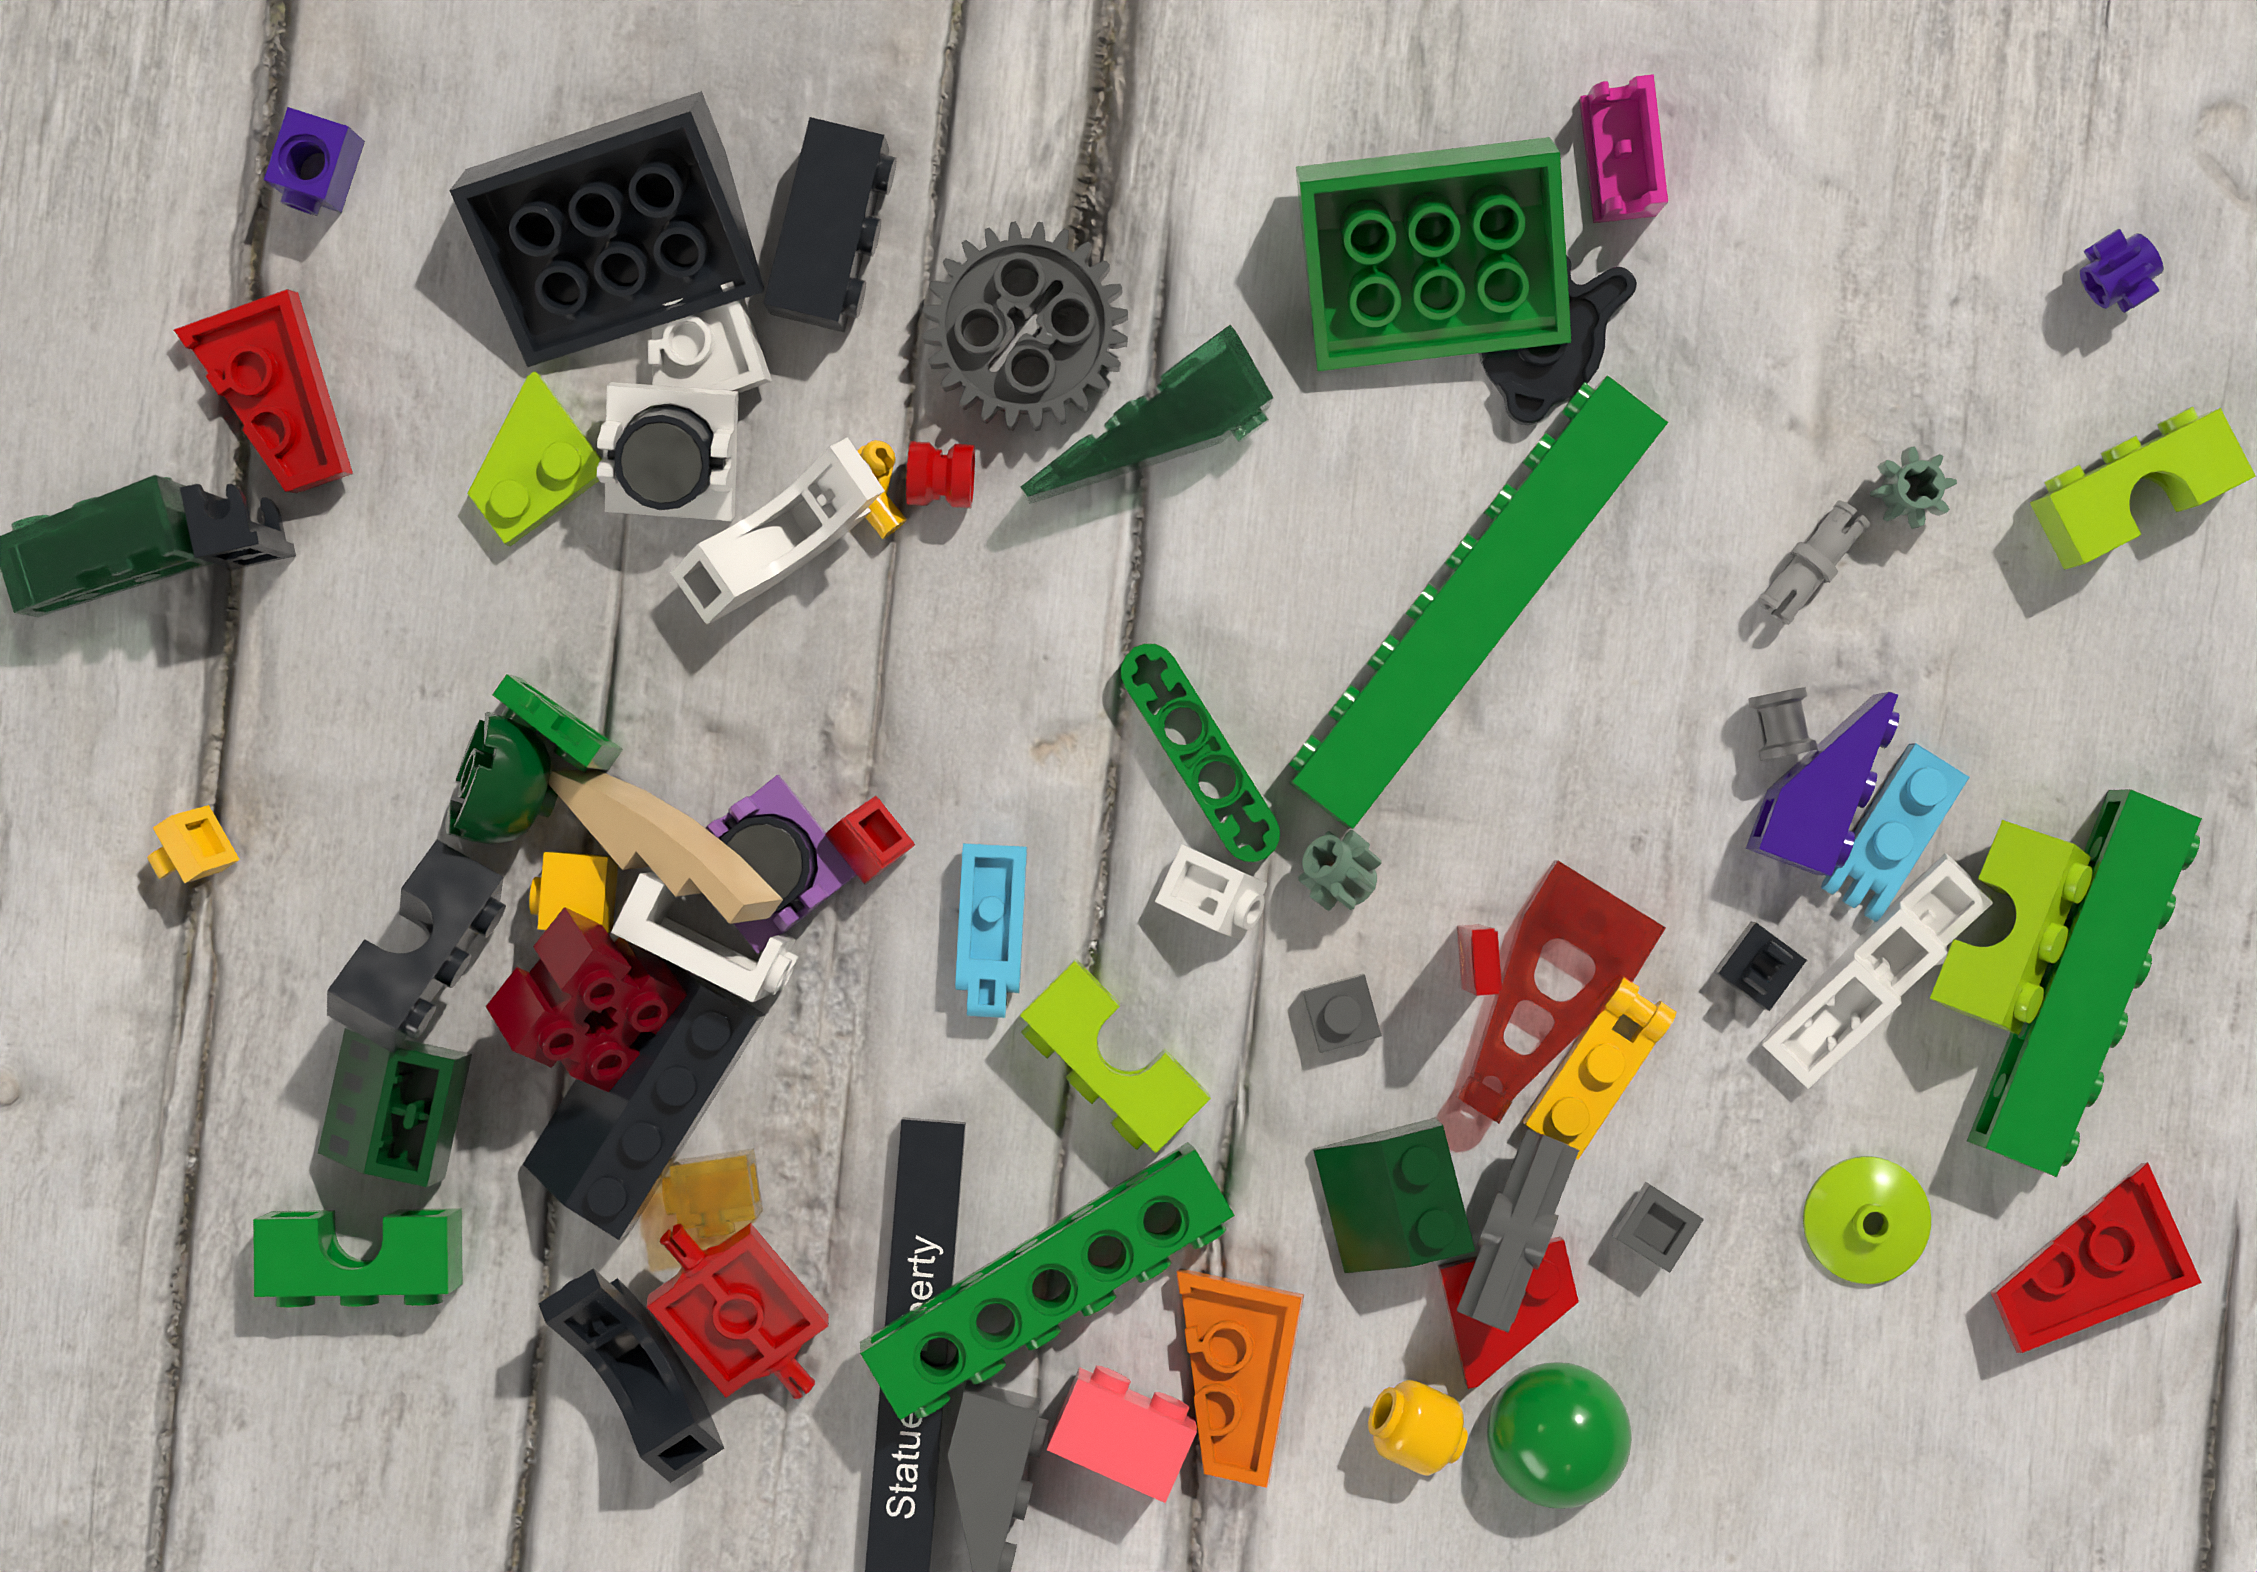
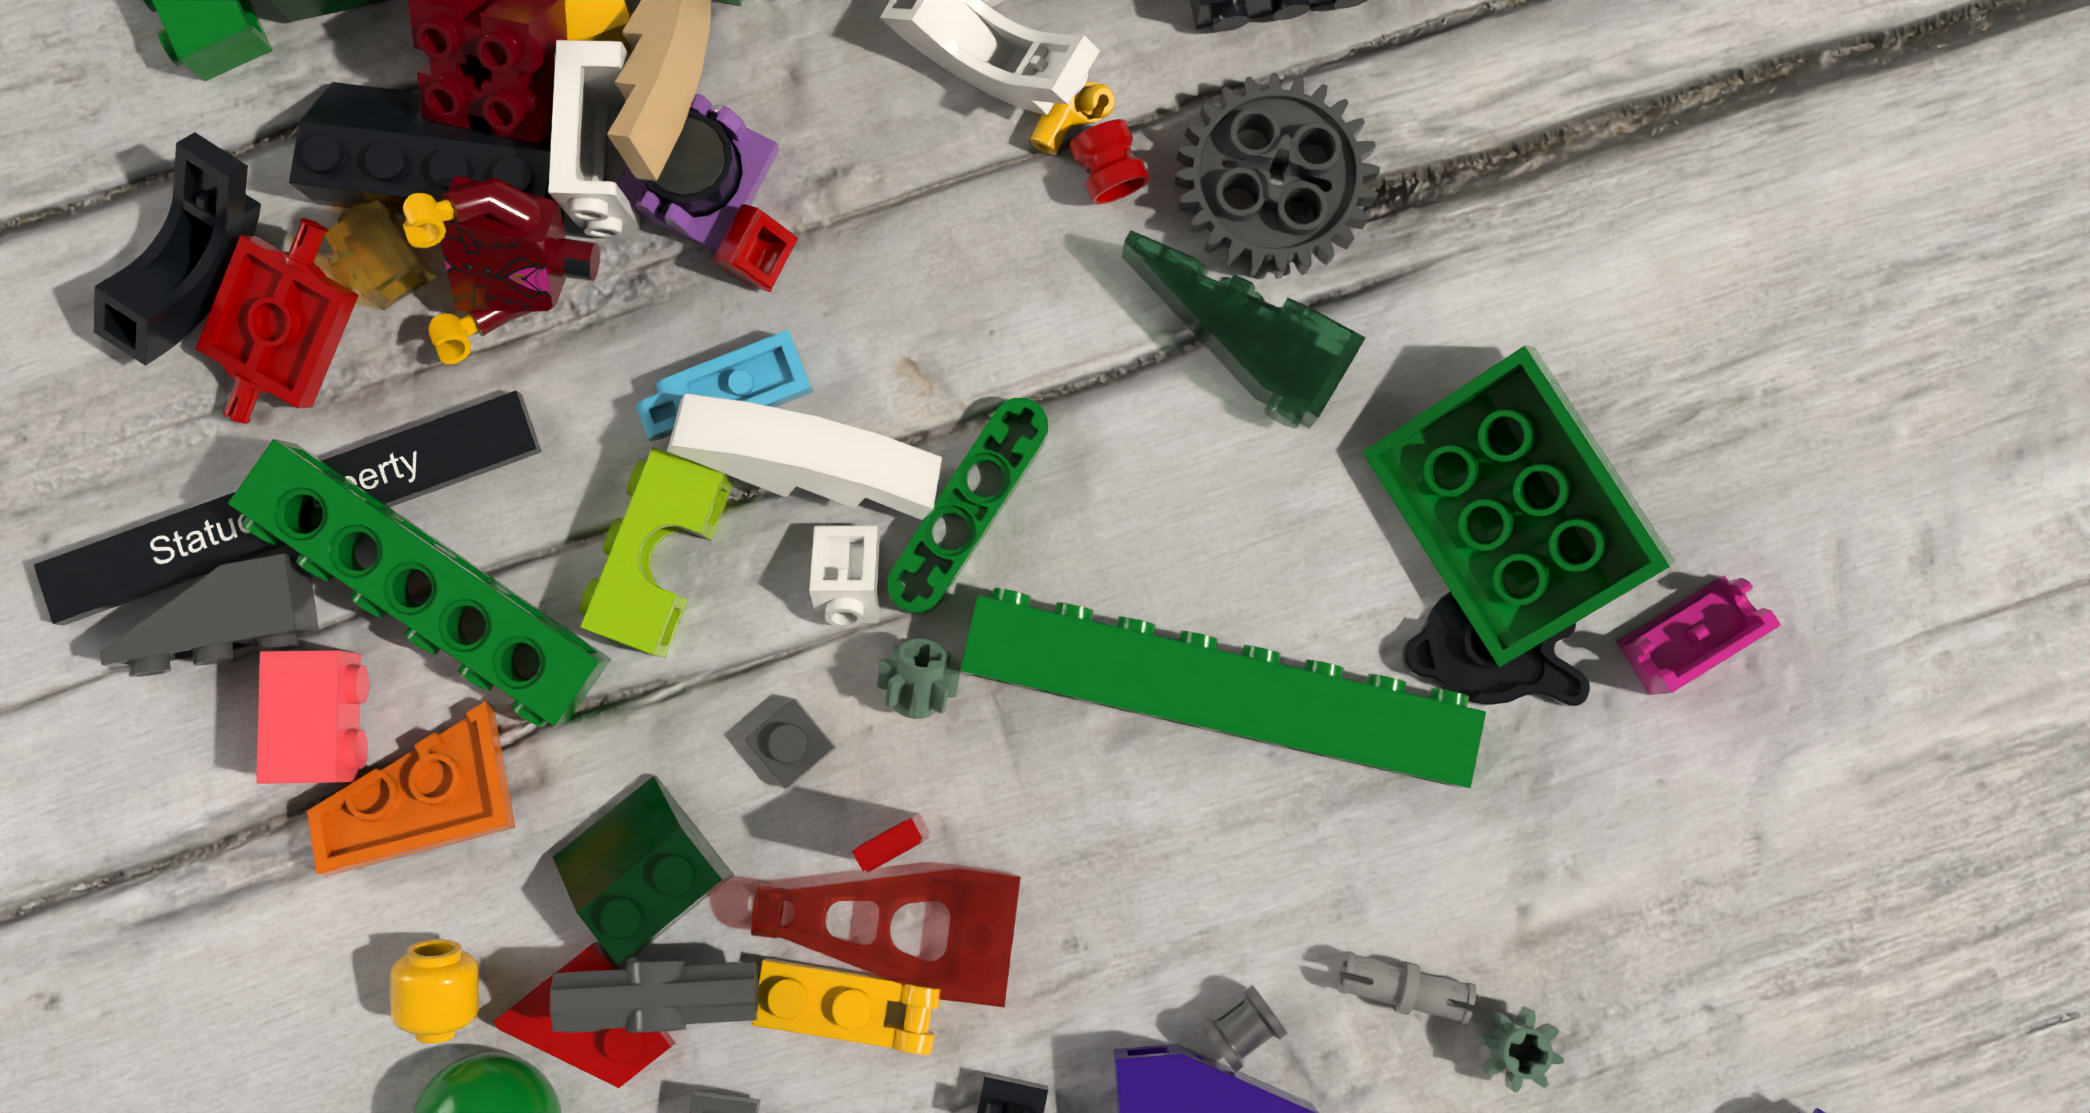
camera: 65 degrees right, 5 degrees down
(780, 1076) = (499, 253): none -> dark red torso
(1087, 877) = (794, 449): none -> white slope

